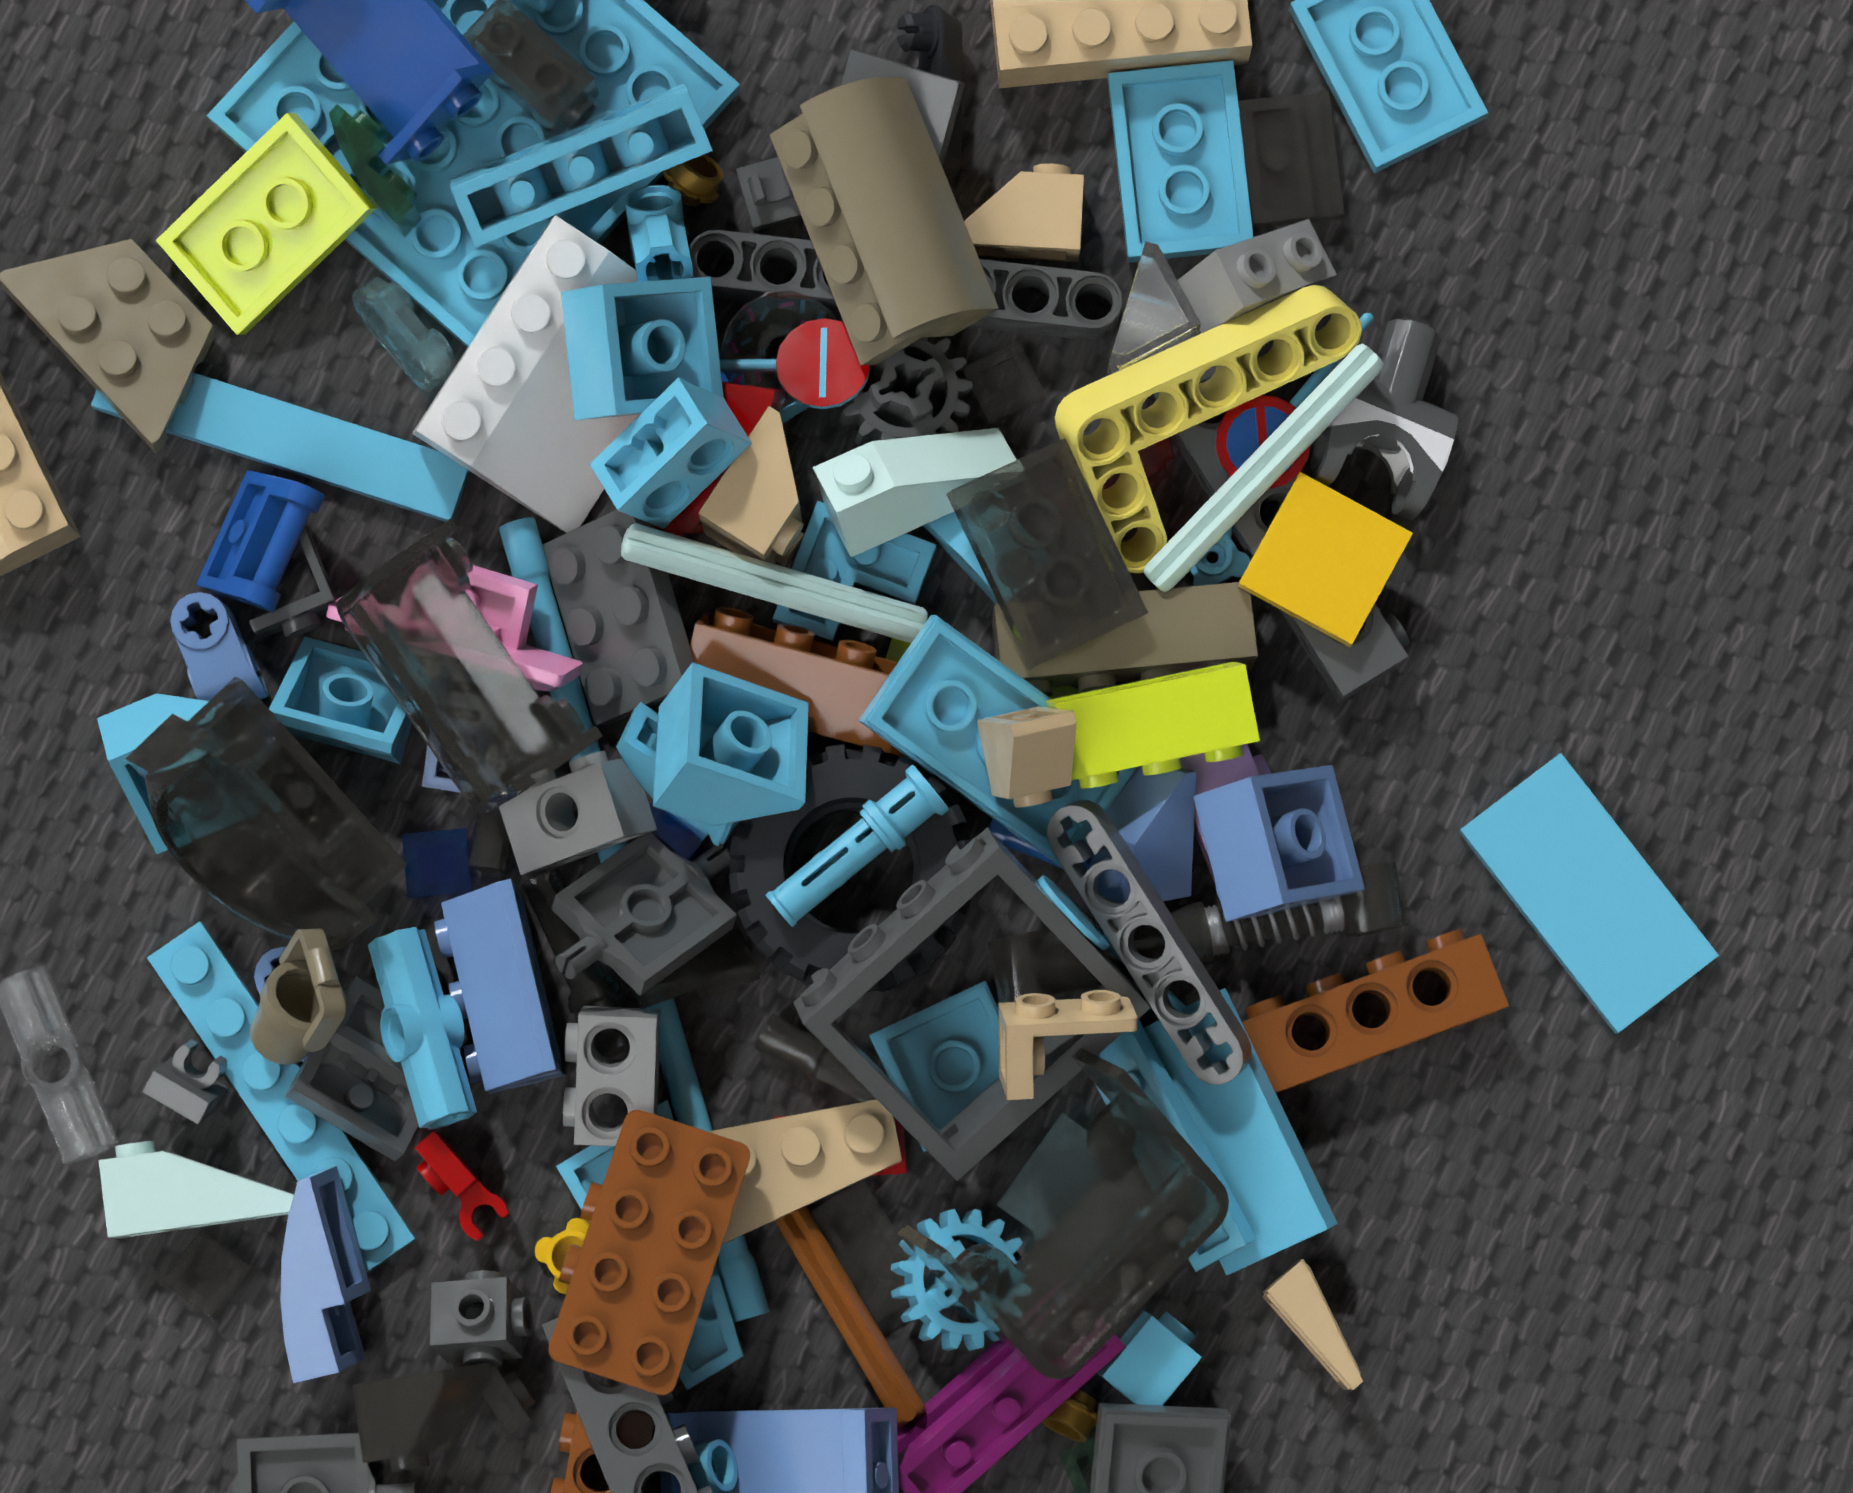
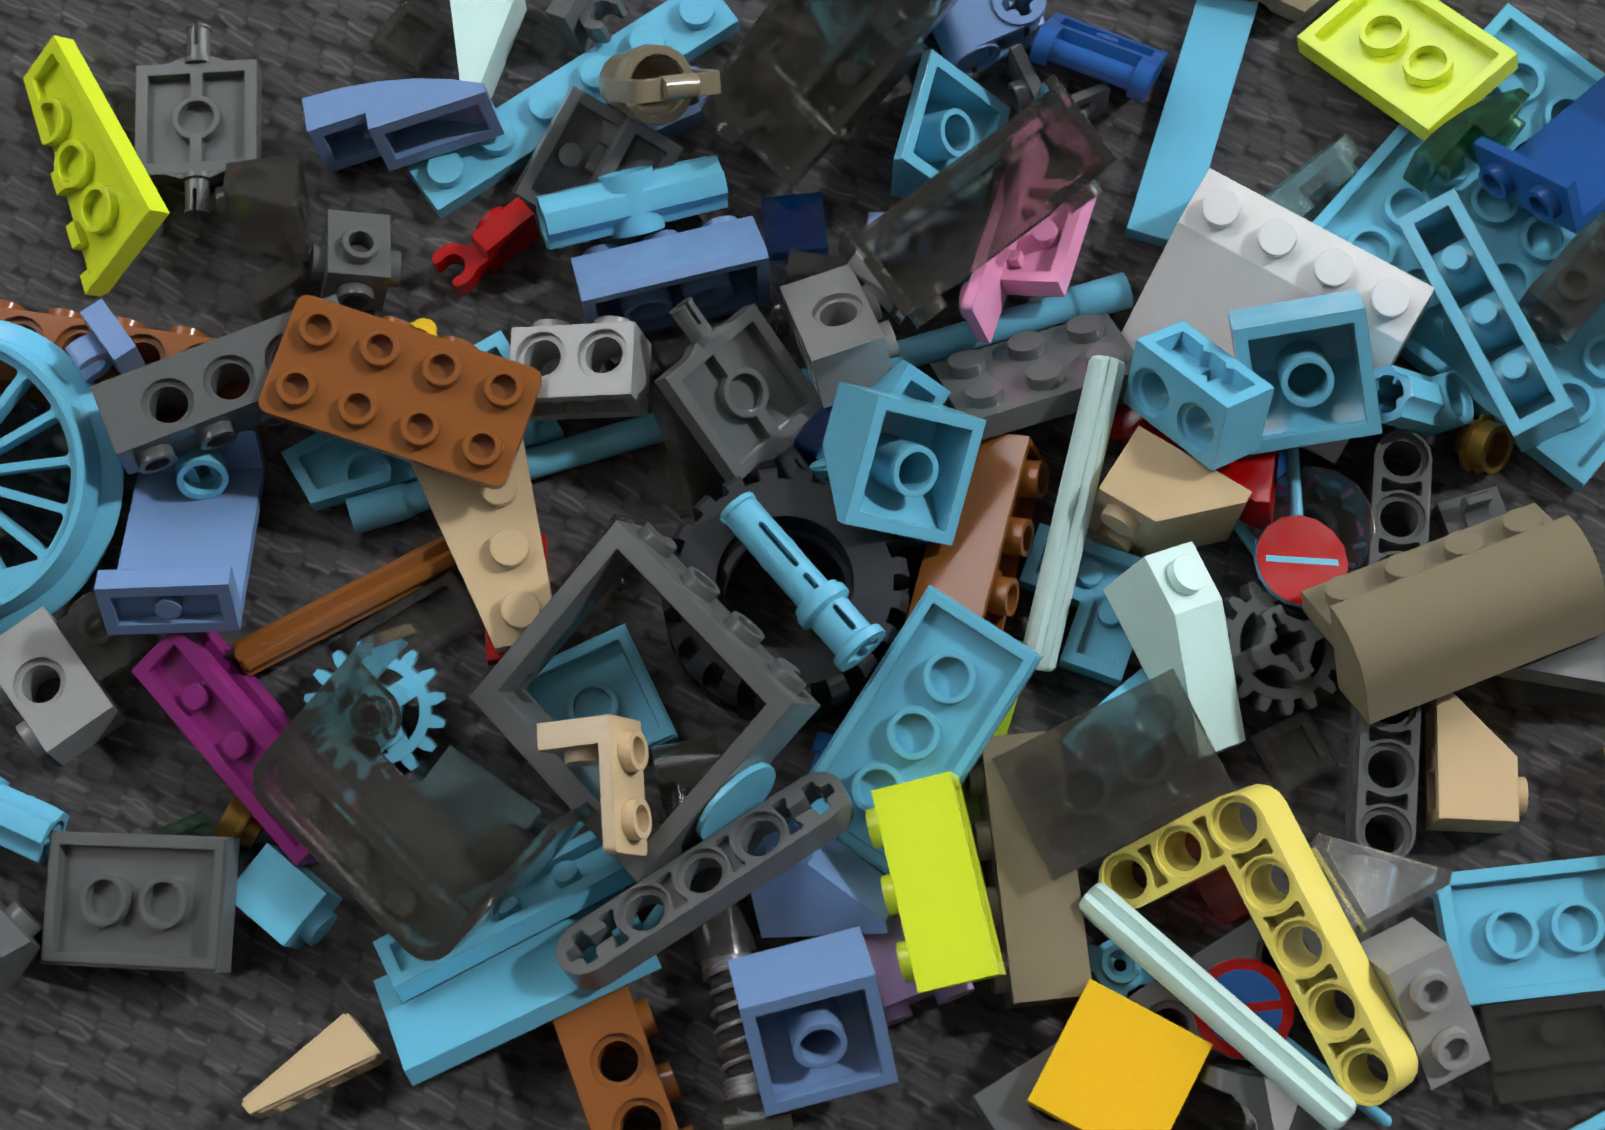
camera: 90 degrees right, 10 degrees down
(1028, 753) = (897, 747): tan slope -> none

